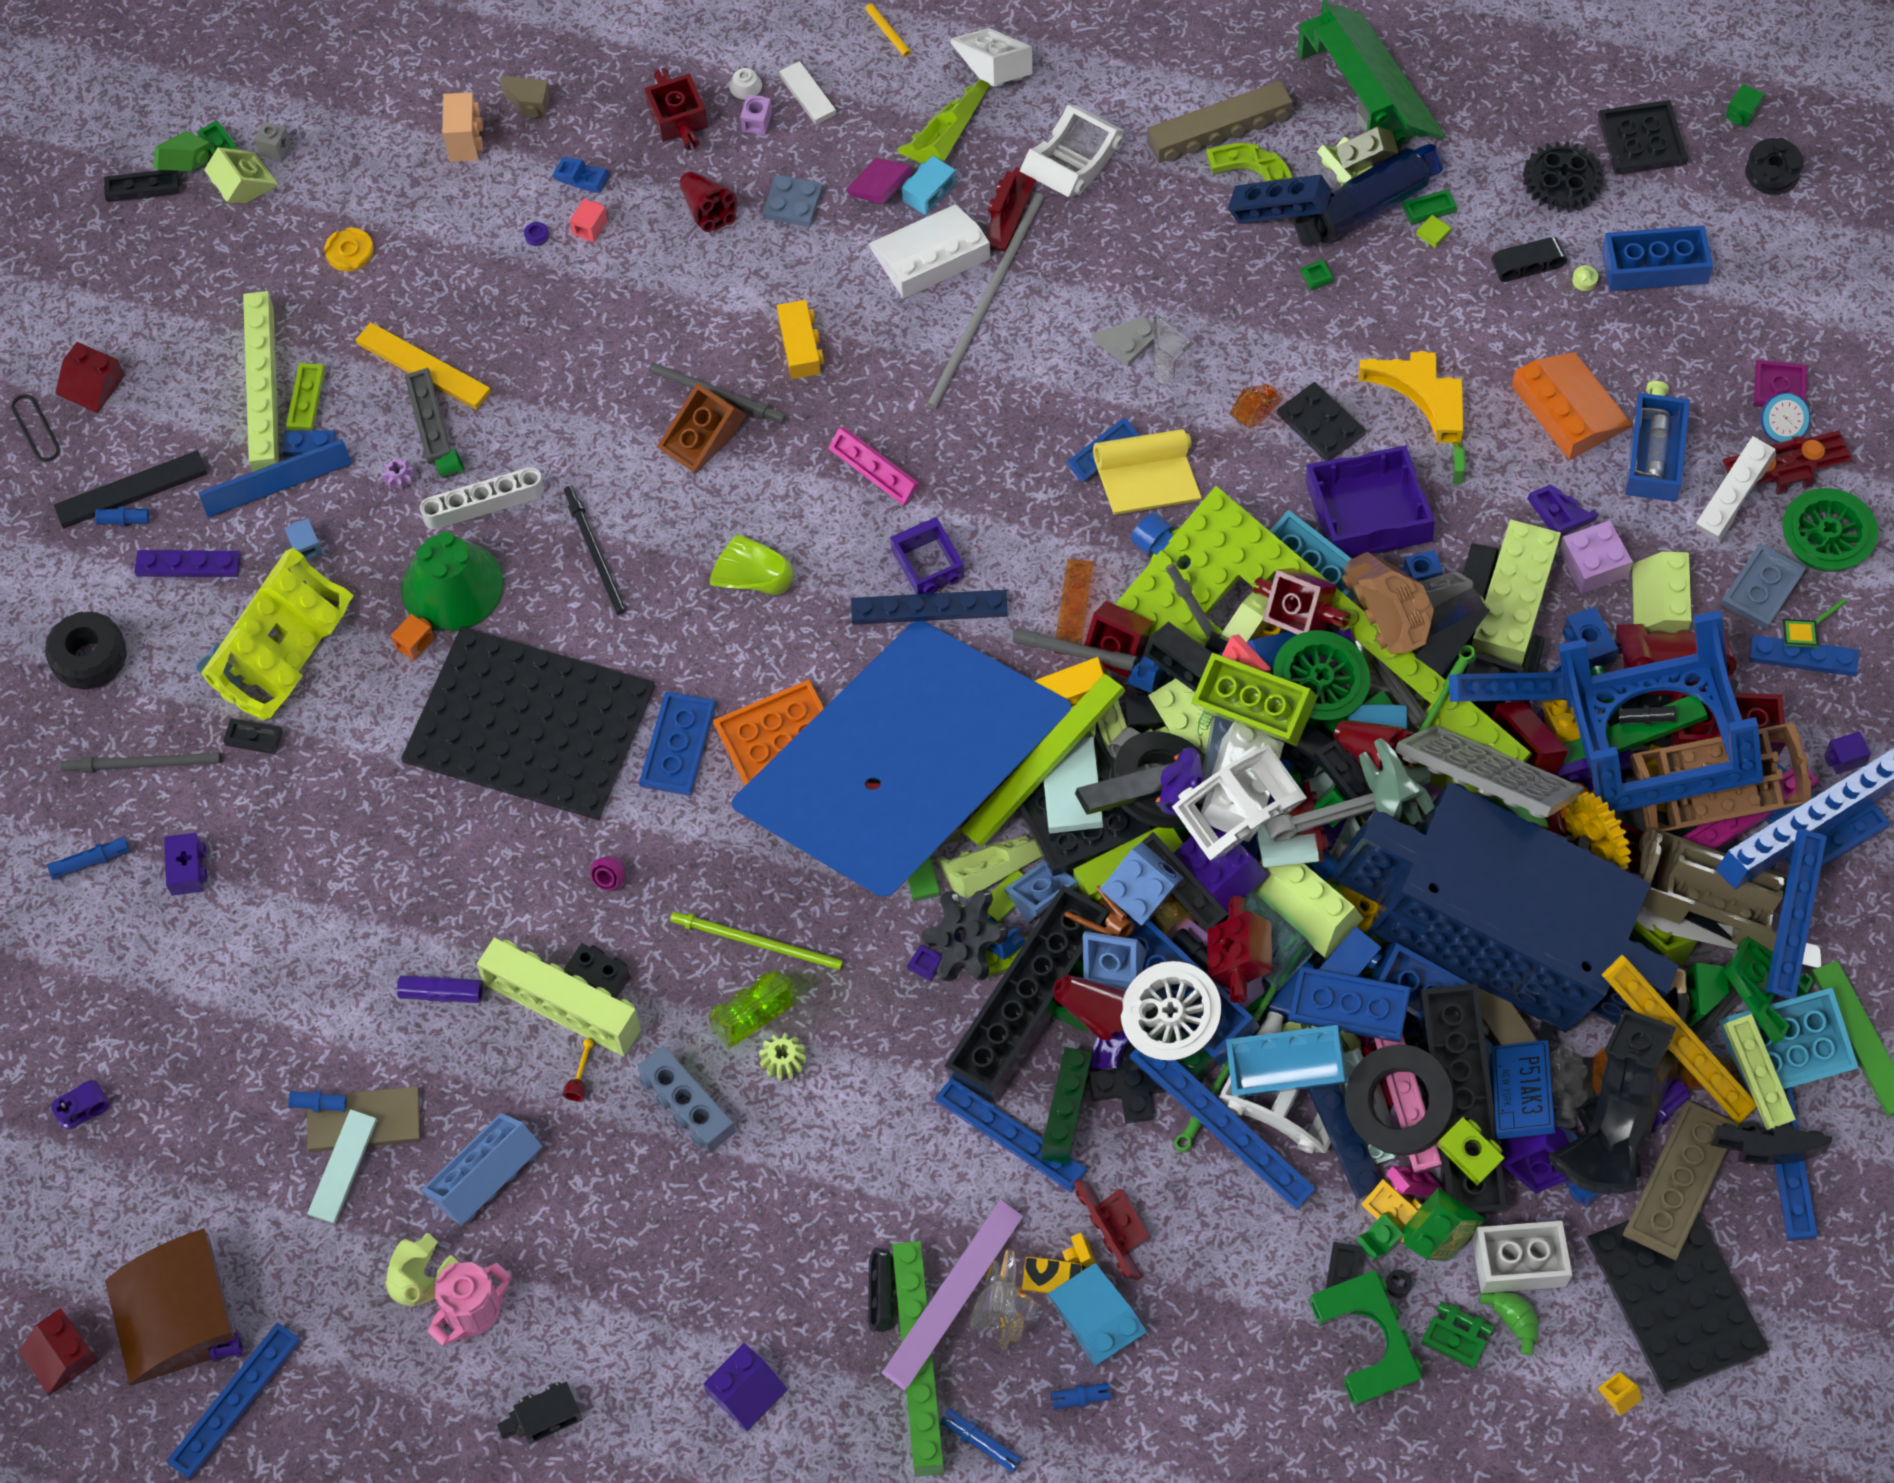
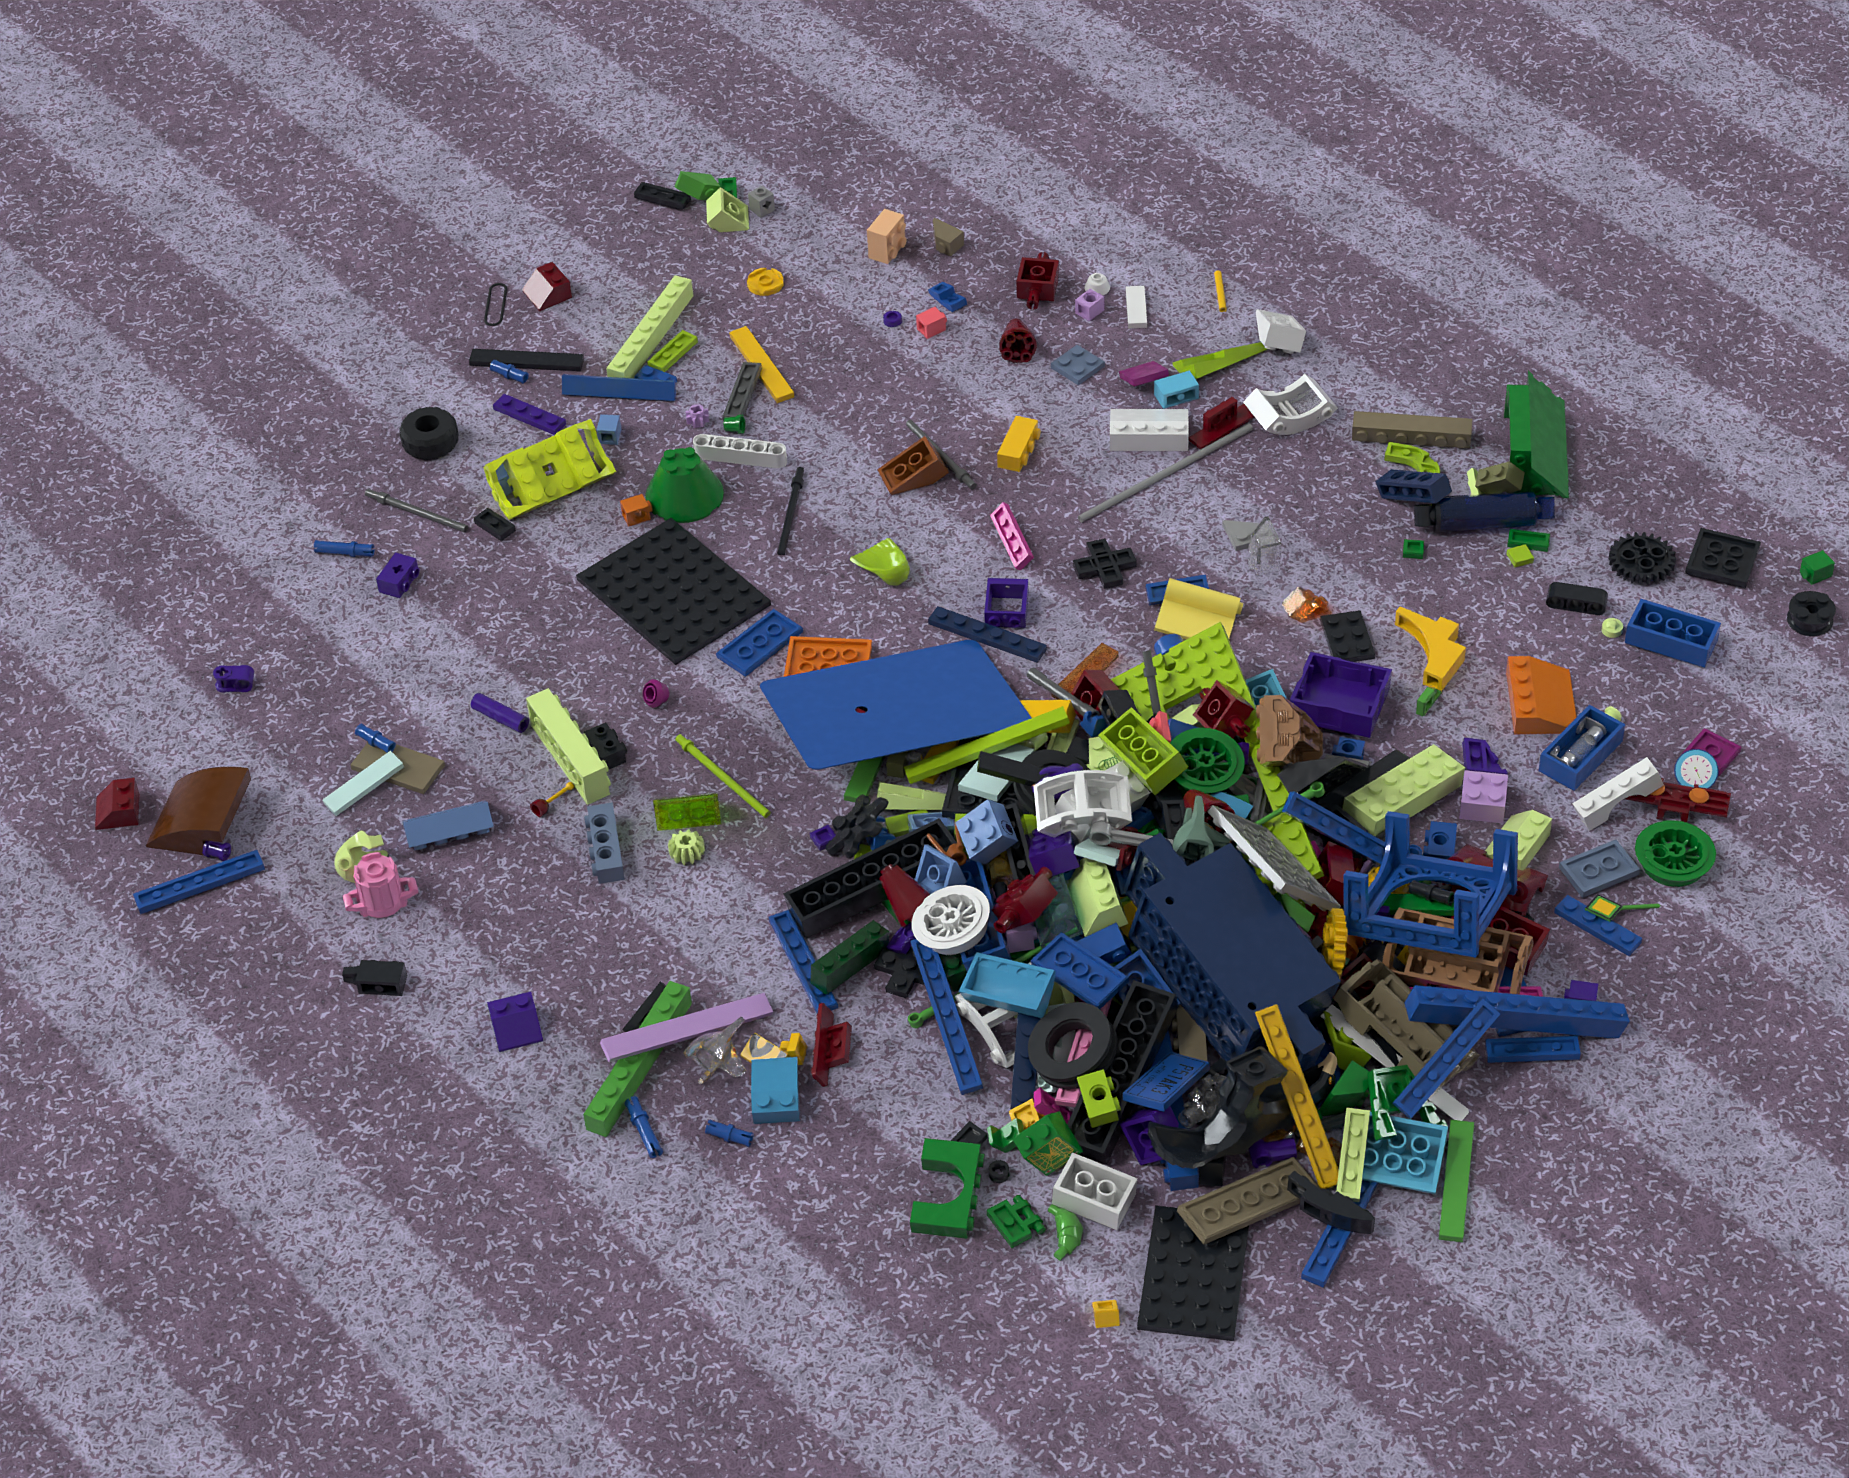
camera: 30 degrees right, 15 degrees down
(999, 452) = (1104, 563): none -> black plate

